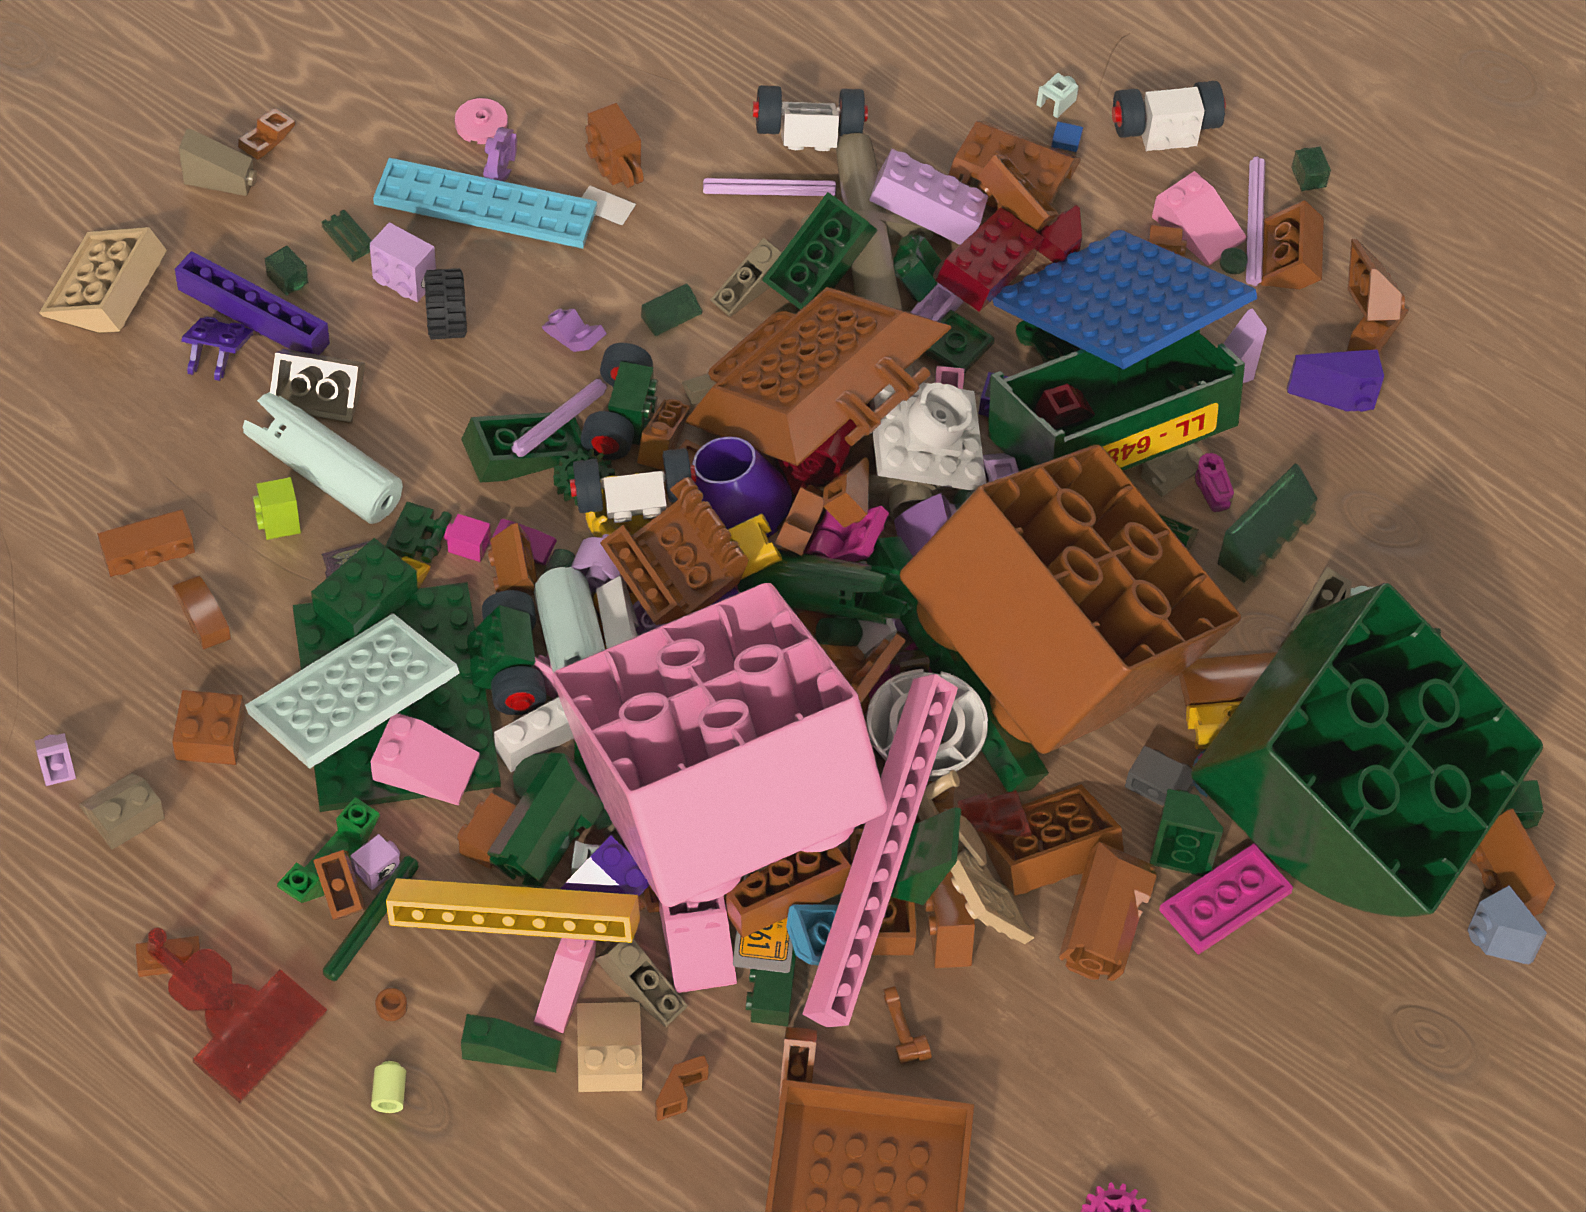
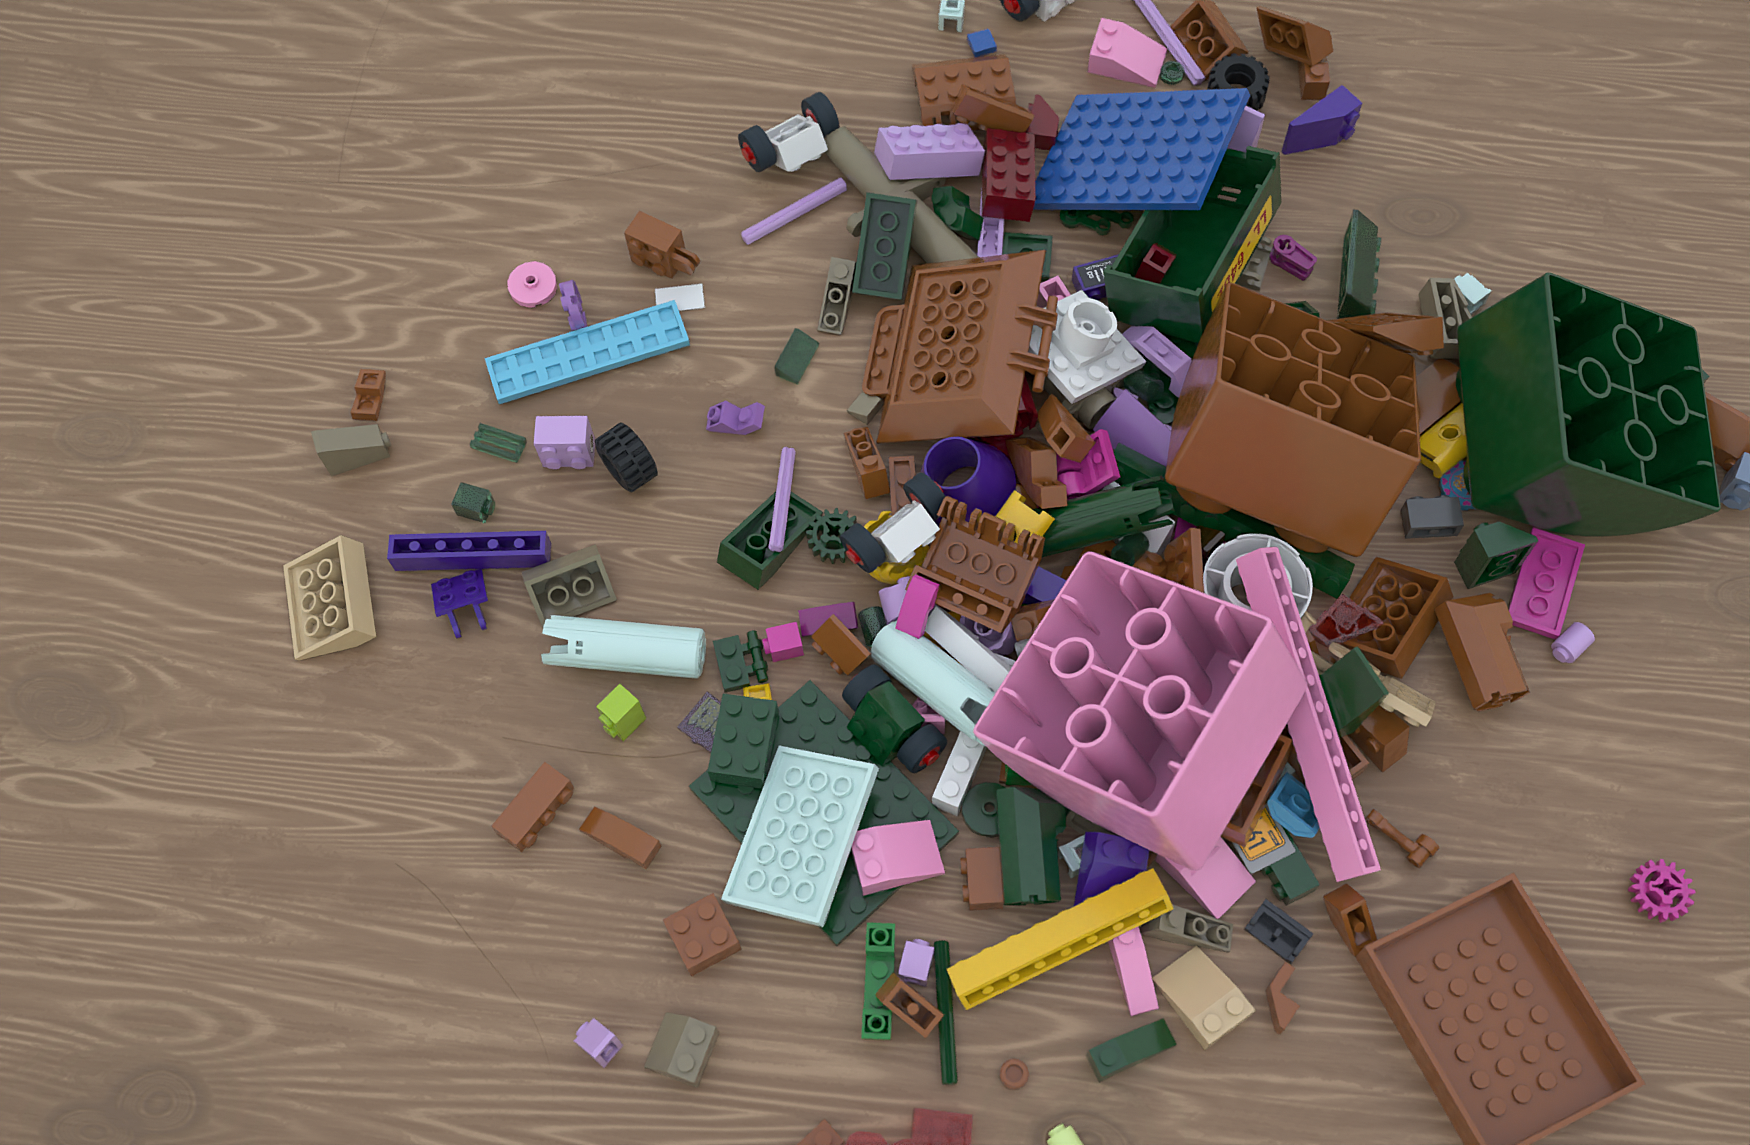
camera: 25 degrees left, 10 degrees up
(600, 557) = (916, 606): none -> dark pink slope
(632, 401) = (828, 453): brick -> none
(722, 1033) = (1278, 931): none -> black hinge
(1168, 238) = (1119, 83): dark orange window -> none
(1208, 963) = (1572, 643): none -> lavender brick
(1248, 592) = (1402, 331): none -> dark orange slope
(1290, 288) = (1244, 72): none -> black tyre

